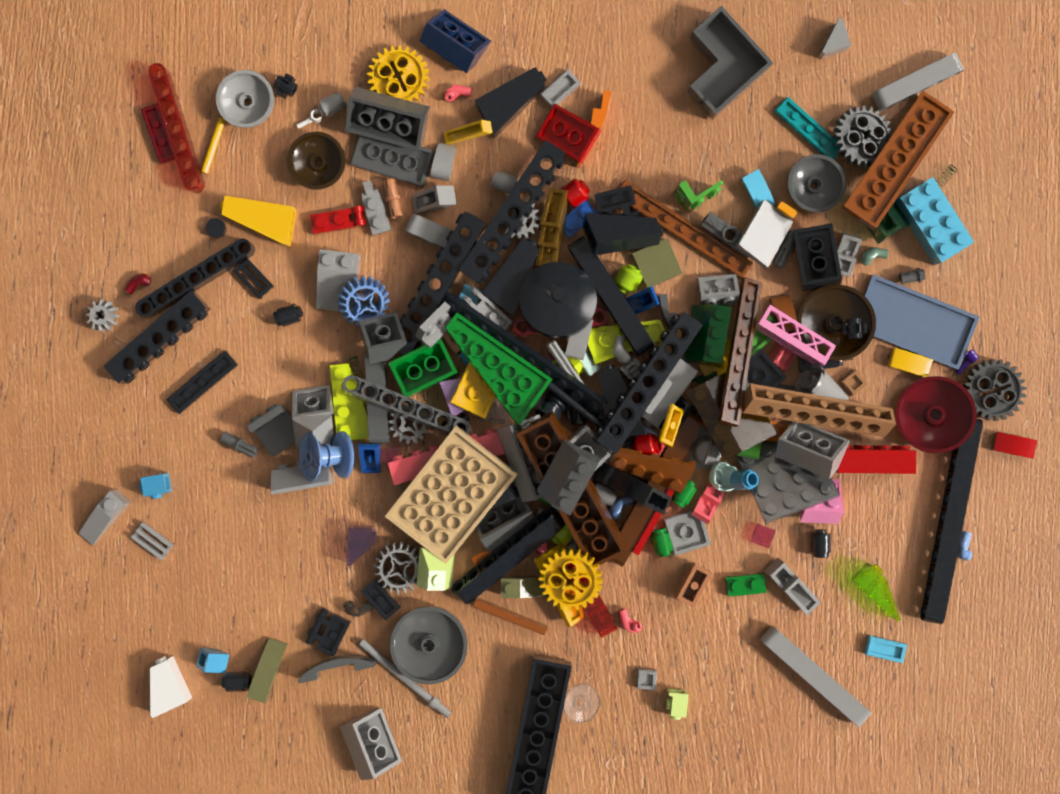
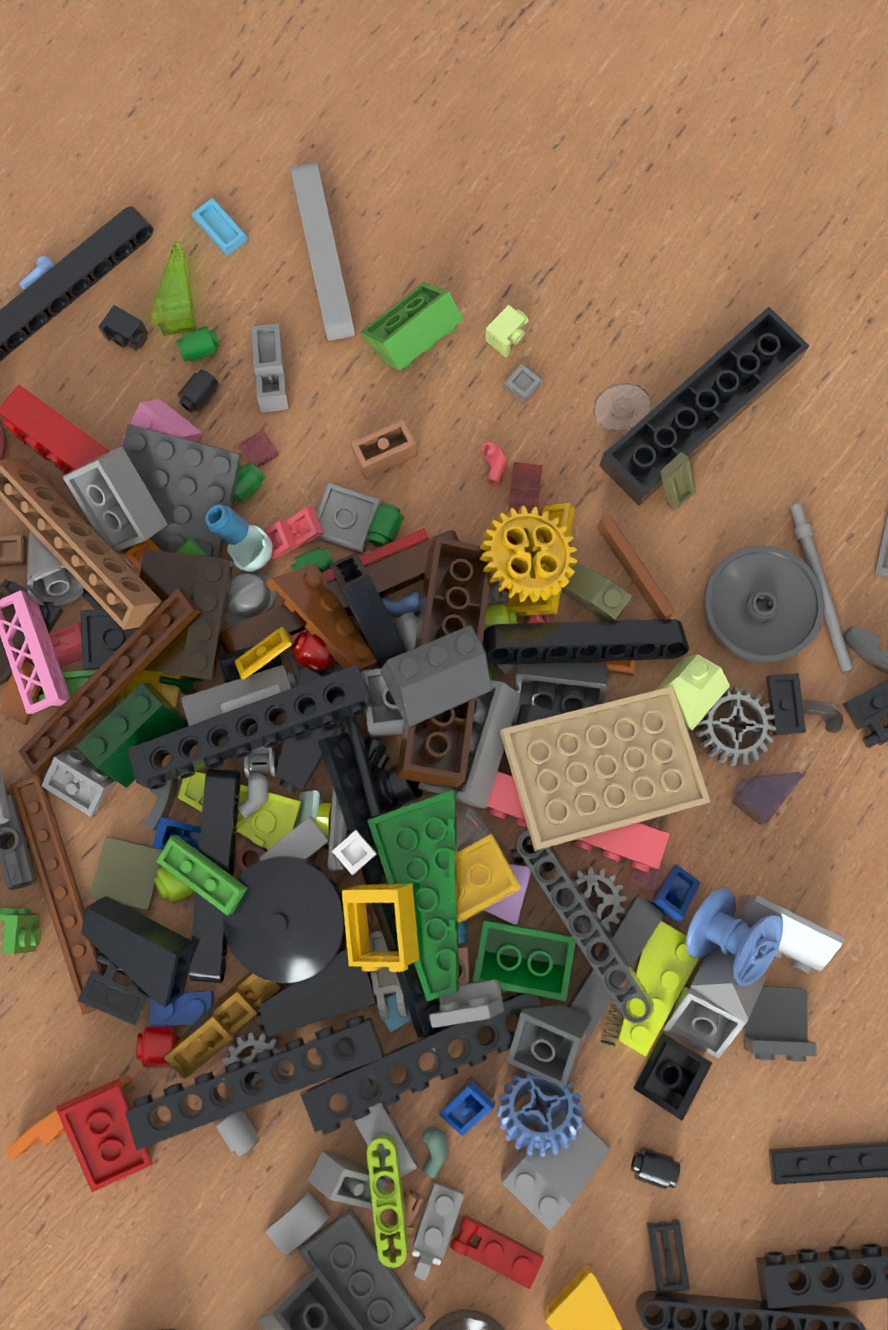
camera: 145 degrees left, 10 degrees down
(238, 444) = (841, 1039): dark grey axle -> none
(310, 365) = (672, 1076): none -> black slope
(399, 245) = (438, 1149): none -> sand green arm
(400, 277) = (468, 1106): none -> blue slope
(405, 207) = (384, 1200): none -> lime beam
(455, 91) = (208, 1312): coral arm -> none
(468, 132) = (233, 1241): yellow piece -> none
(510, 99) = (147, 1244): black slope -> none
(521, 681) = (678, 481): none -> olive tile
(528, 334) = (358, 932): none -> yellow window
(546, 358) = (354, 852): none -> white plate
(560, 88) = (70, 1205): light grey tile -> none
(616, 290) = (201, 875): none -> bright green tile
(731, 668) = (413, 325): none -> bright green slope
(745, 584) = (323, 408): green plate -> none
(752, 512) = (247, 483): none -> green brick
(841, 570) = (198, 344): none -> green brick
(889, 549) = (123, 329): none -> black brick

